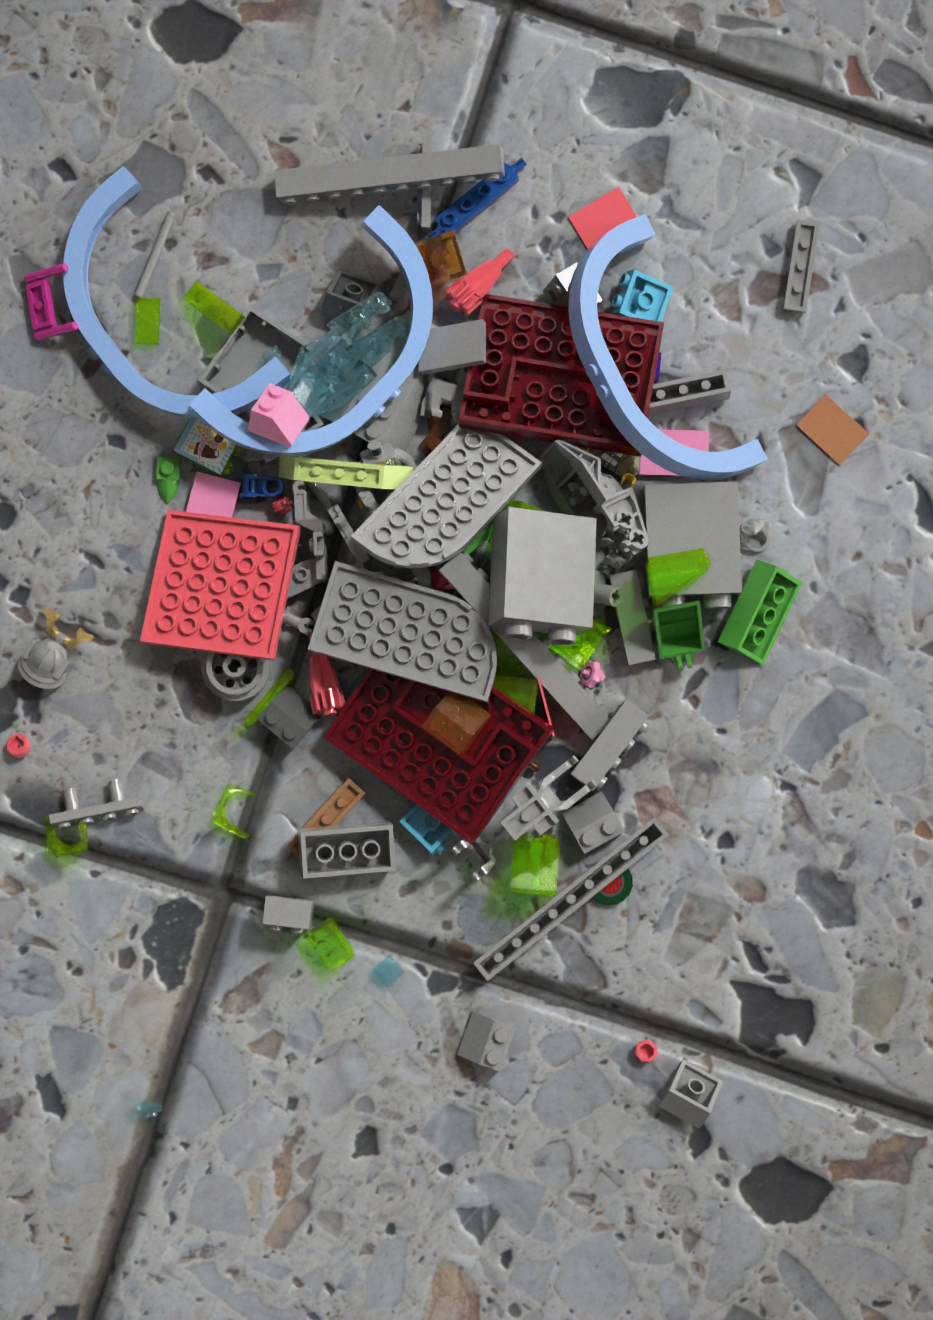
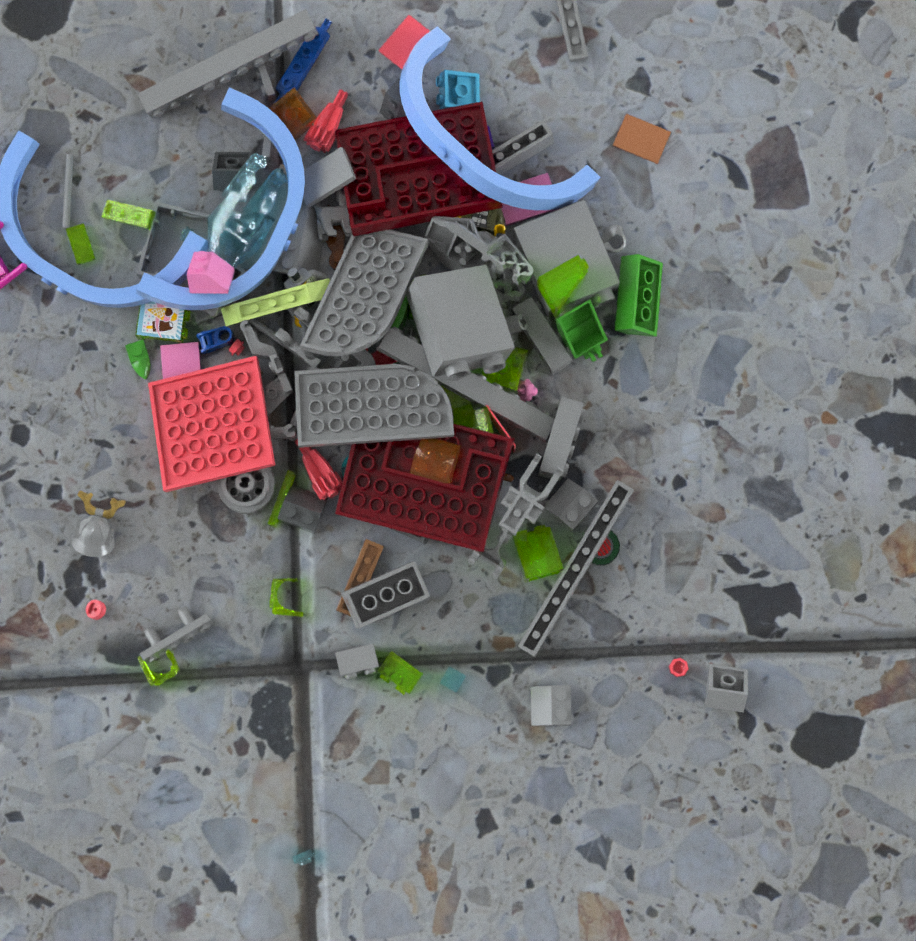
camera: 25 degrees left, 5 degrees down
(428, 829) = (444, 555): medium azure plate -> none

